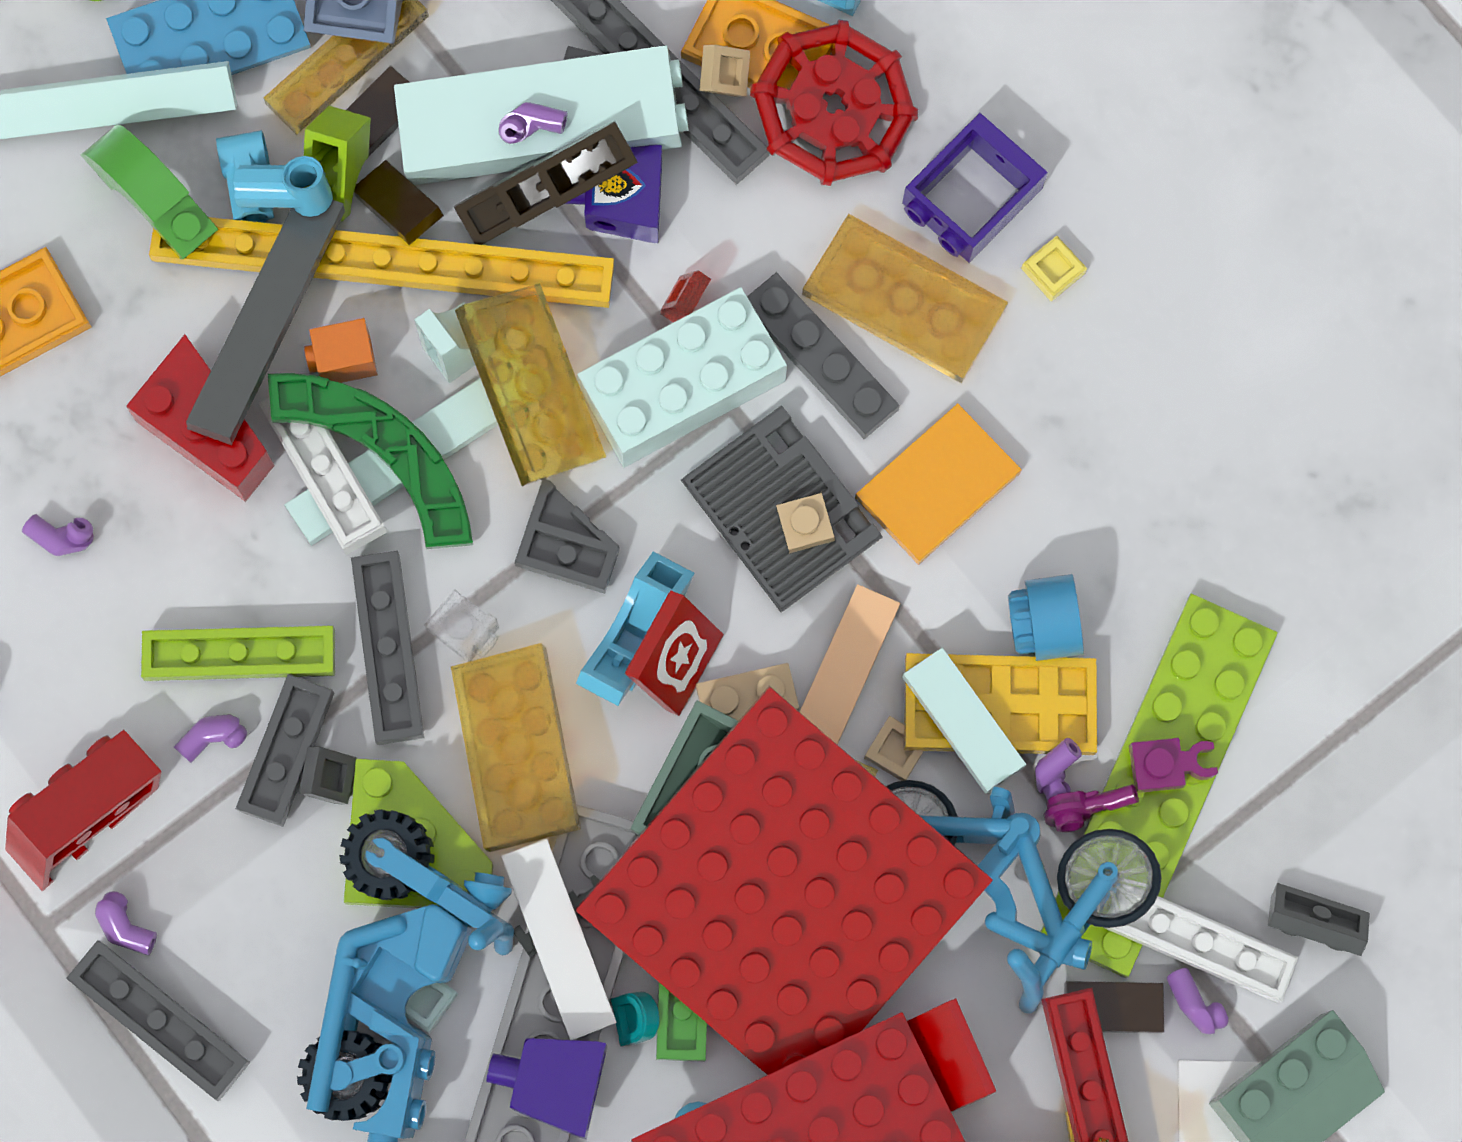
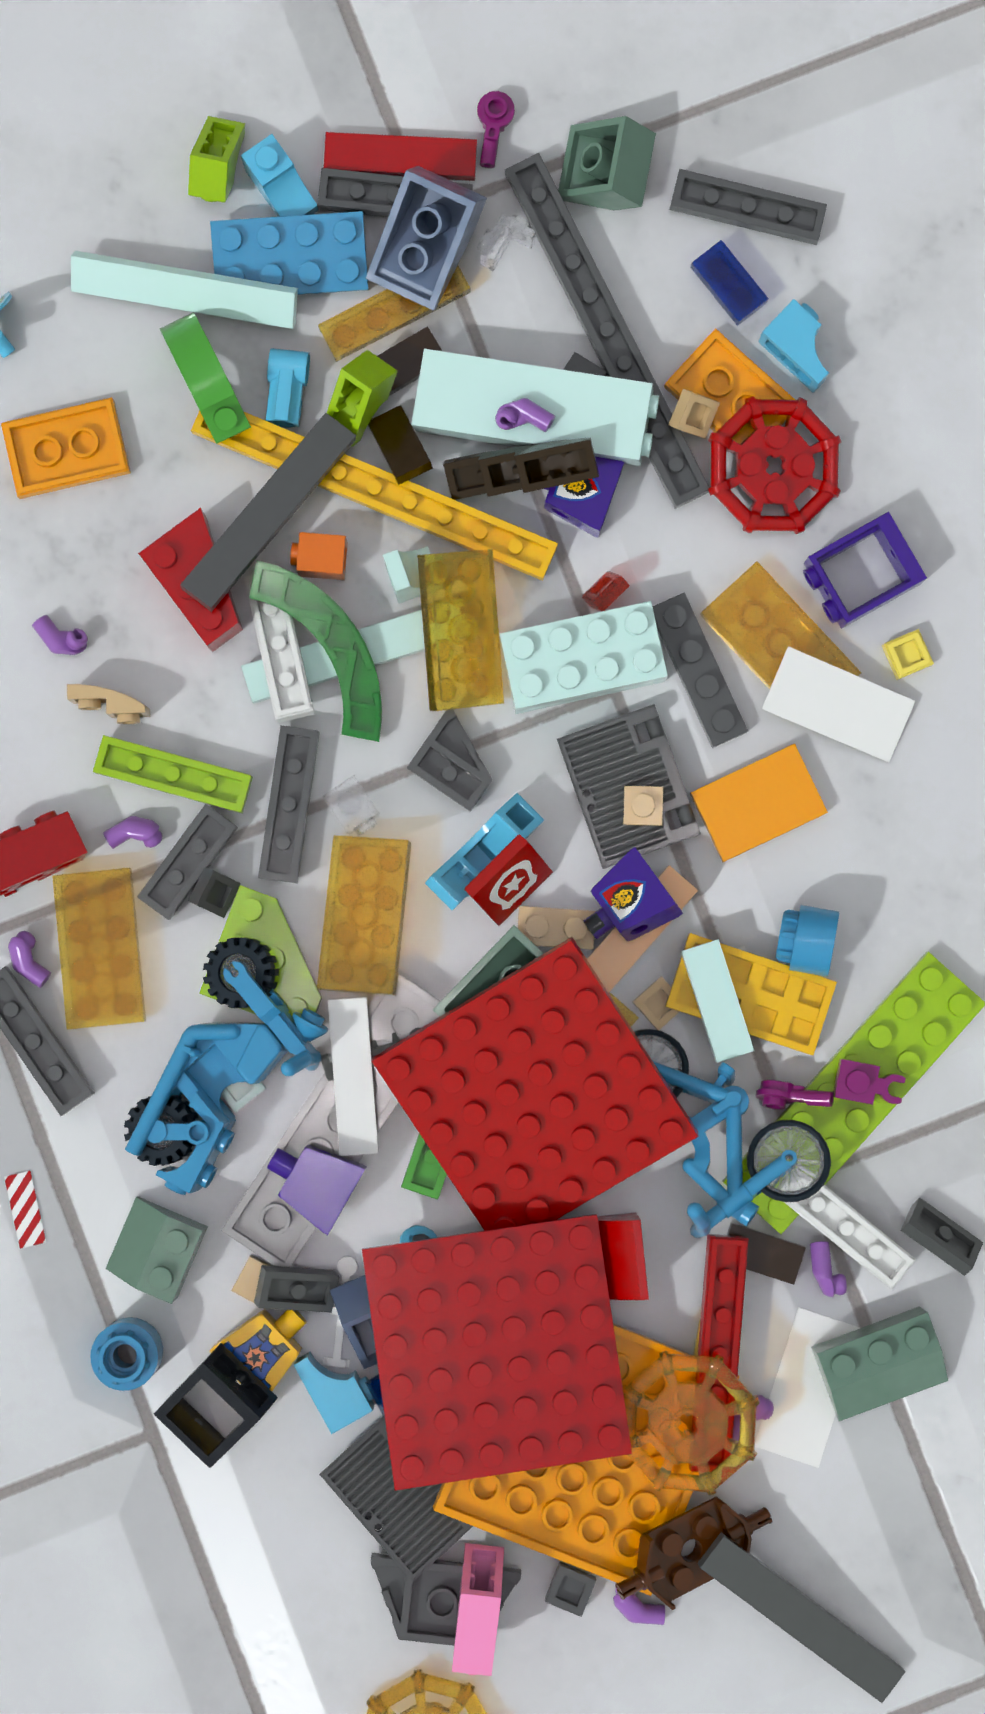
camera: 20 degrees right, 10 degrees up
(153, 591) = (118, 705): none -> tan slope
(207, 885) = (99, 948): none -> clear yellow plate
(284, 186) = (308, 409): medium azure piece -> none
(635, 1017) = (394, 1150): teal tile -> none
(826, 633) = (631, 900): none -> dark purple torso
(993, 344) = (838, 704): none -> white sticker
(1052, 767) = (775, 1056): medium lavender arm -> none

